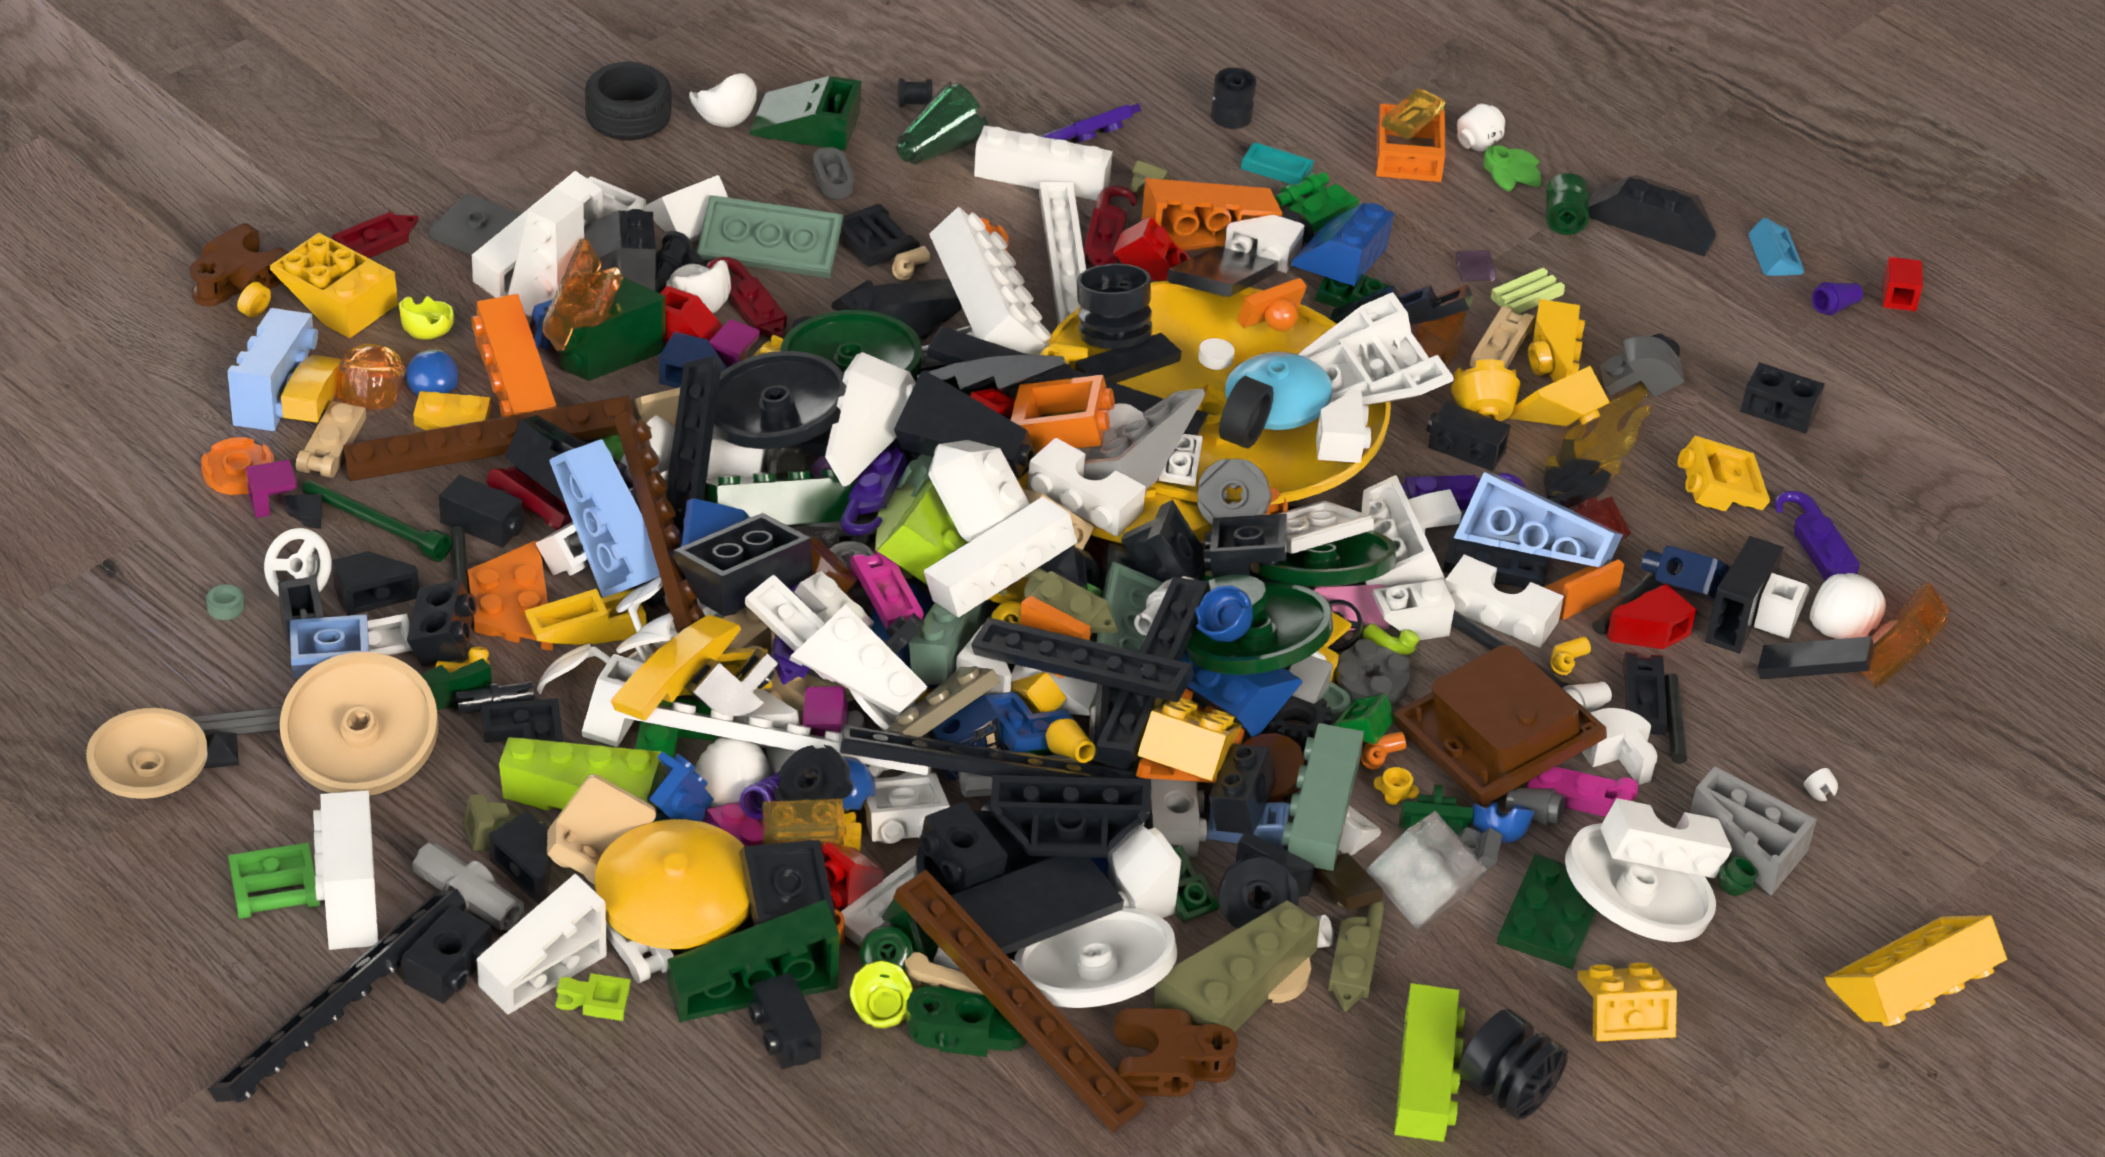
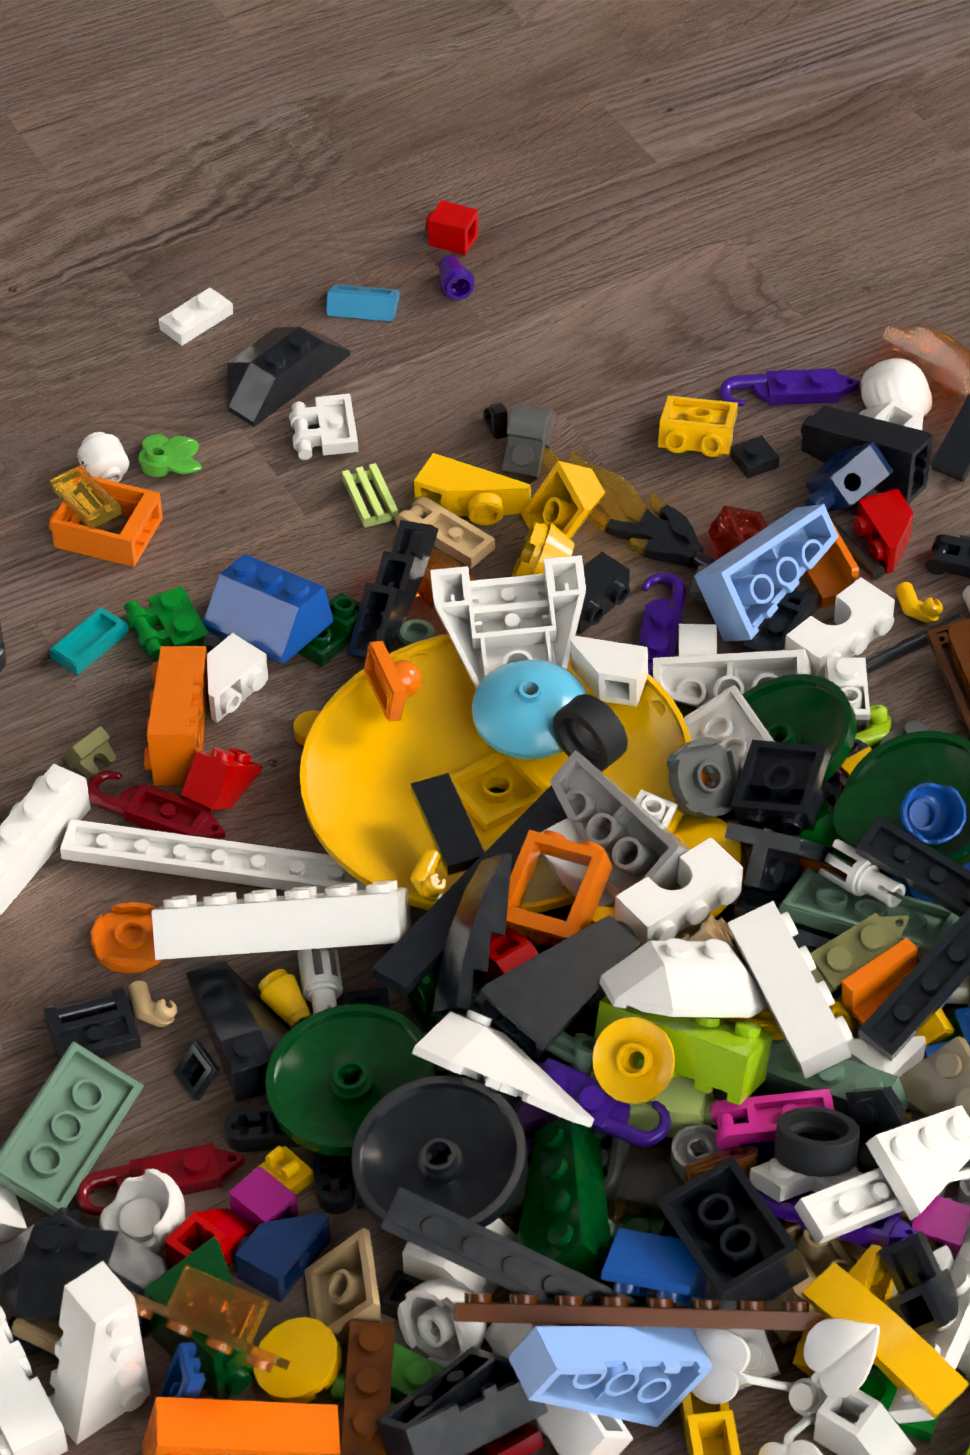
camera: 70 degrees left, 5 degrees up
(598, 386) = (313, 1358): none -> yellow tile
(857, 580) = (816, 1141): none -> black tyre
(901, 484) = (615, 1060): none -> yellow dish
(945, 317) = (284, 997): none -> yellow cone
(1114, 306) = (386, 803): black wheel -> none
(1216, 353) = (450, 748): white tile -> none
(1222, 271) = (293, 717): black tile -> none
(1475, 265) = (314, 524): clear purple tile -> none
(1567, 204) = (255, 424): dark green wheel -> none
(1595, 249) = (335, 430): none -> white plate
(1695, 154) = (196, 316): none -> white plate
(1710, 526) = (754, 456): none -> black plate
(1782, 397) = (594, 353): black brick -> none

